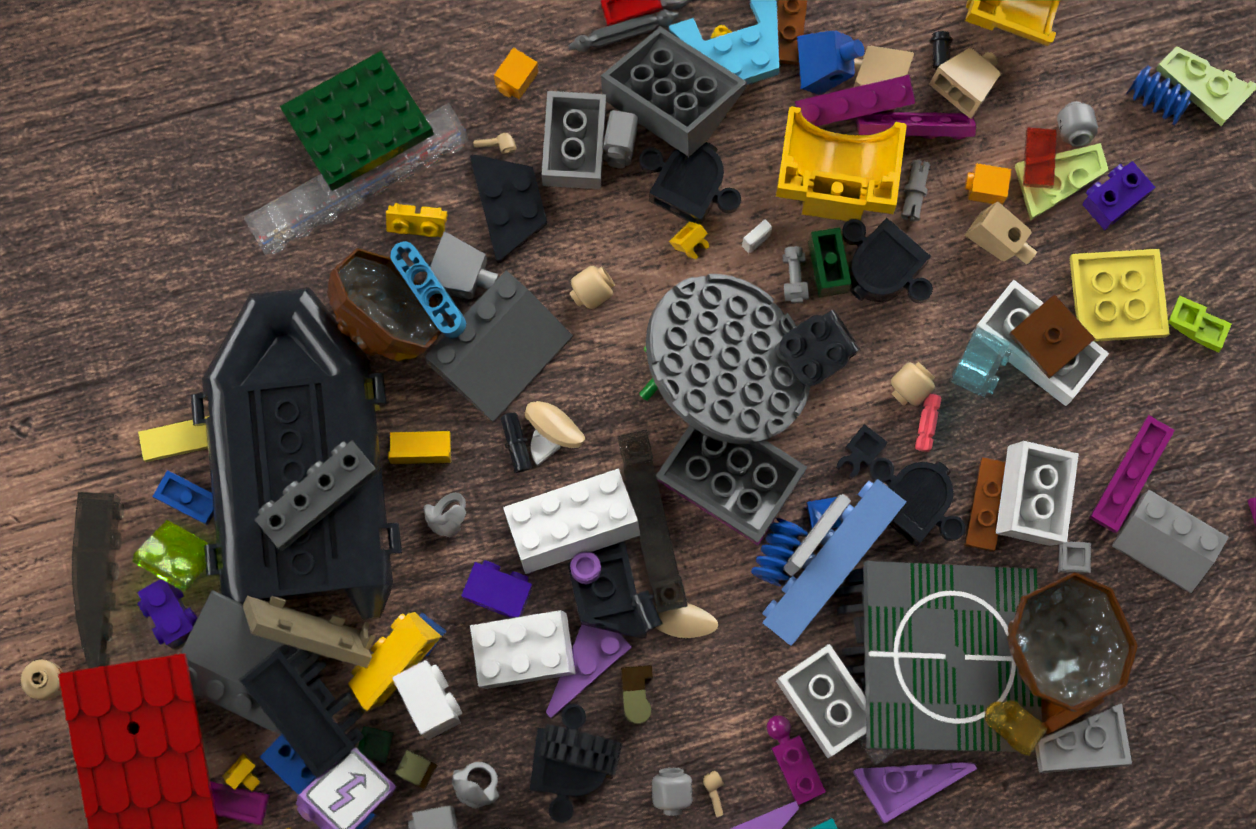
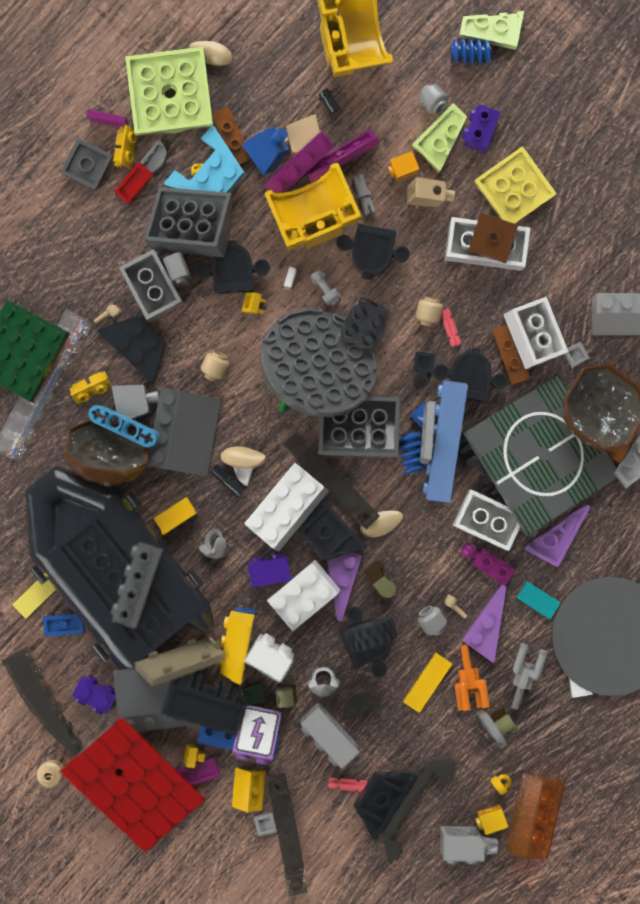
camera: 25 degrees left, 10 degrees up
(173, 555) = (77, 662): clear neon green plate -> none
(515, 74) = (93, 266): light orange brick -> none
(585, 567) = (310, 528): medium lavender tile -> none
(623, 30) = (138, 202): dark grey wheel -> none
(646, 610) = (359, 532): black pin -> none
(829, 262) = (340, 269): dark green brick -> none
(966, 80) = (355, 111): tan torso -> none
(980, 362) = (461, 278): clear light blue brick -> none
(1015, 725) = (598, 471): clear yellow piece -> none
(1039, 157) = (423, 133): clear red tile -> none
(1131, 474) = (580, 287): magenta plate -> none
(1198, 325) = (569, 177): lime slope -> none

